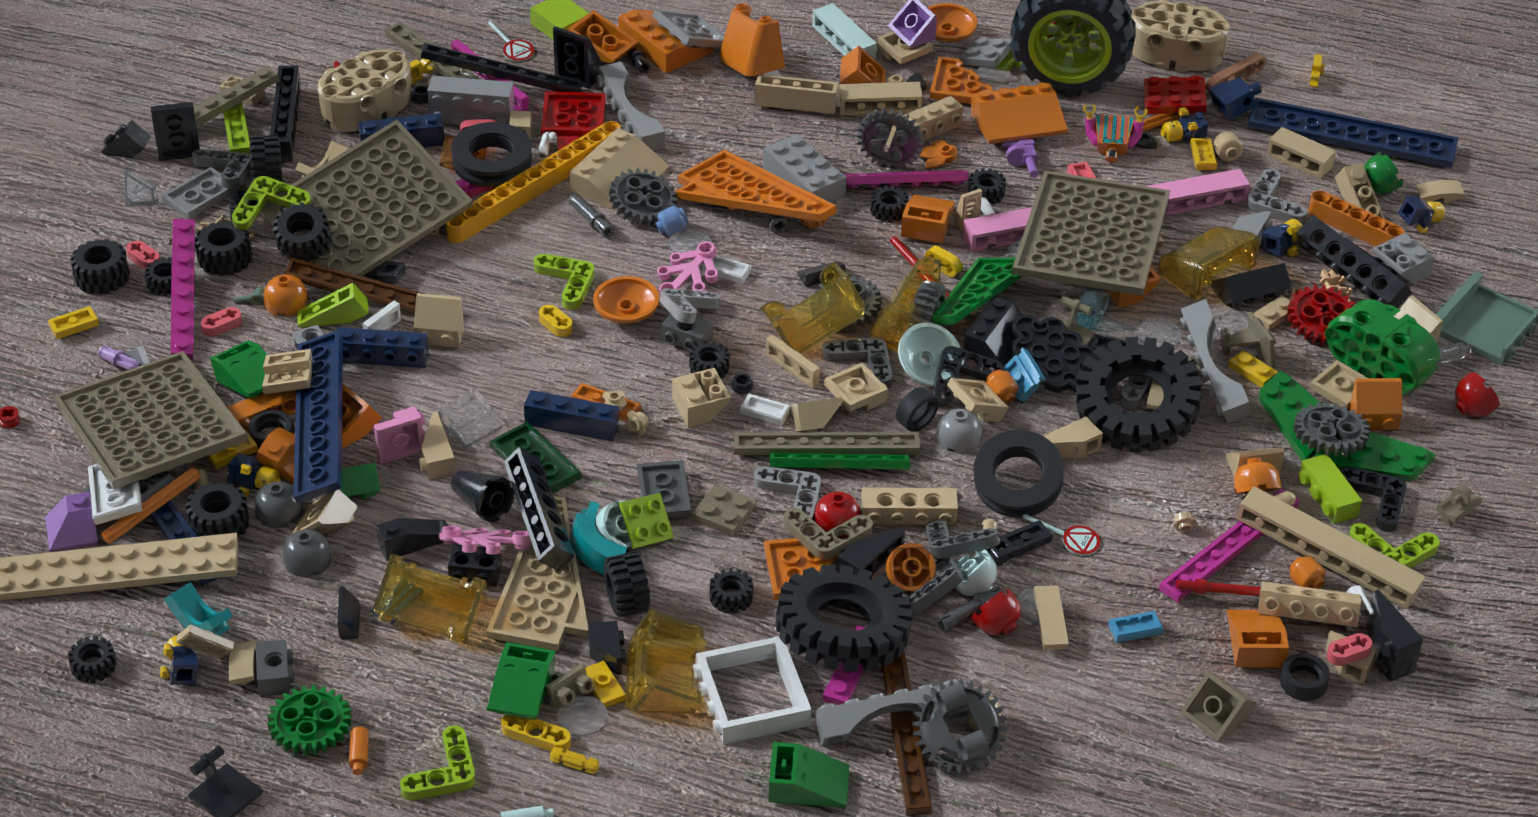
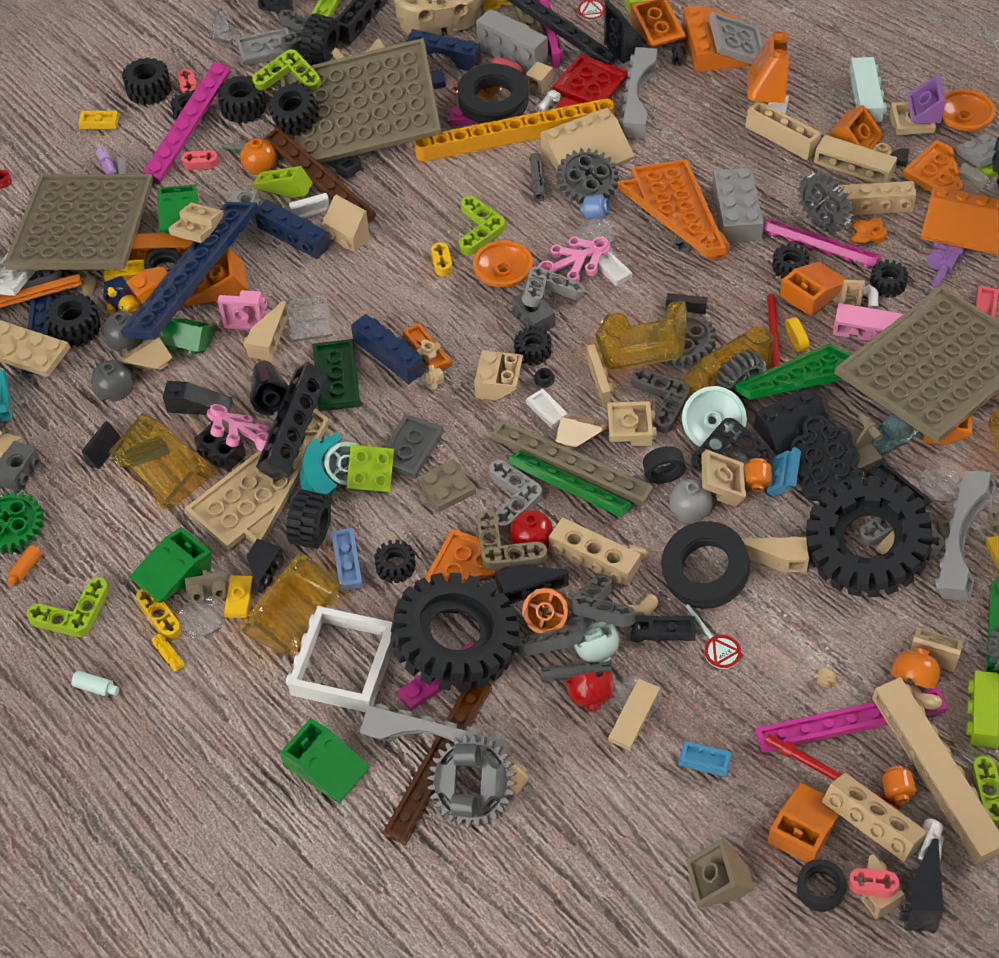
camera: 35 degrees right, 10 degrees up
(682, 606) = (346, 559): none -> medium blue plate

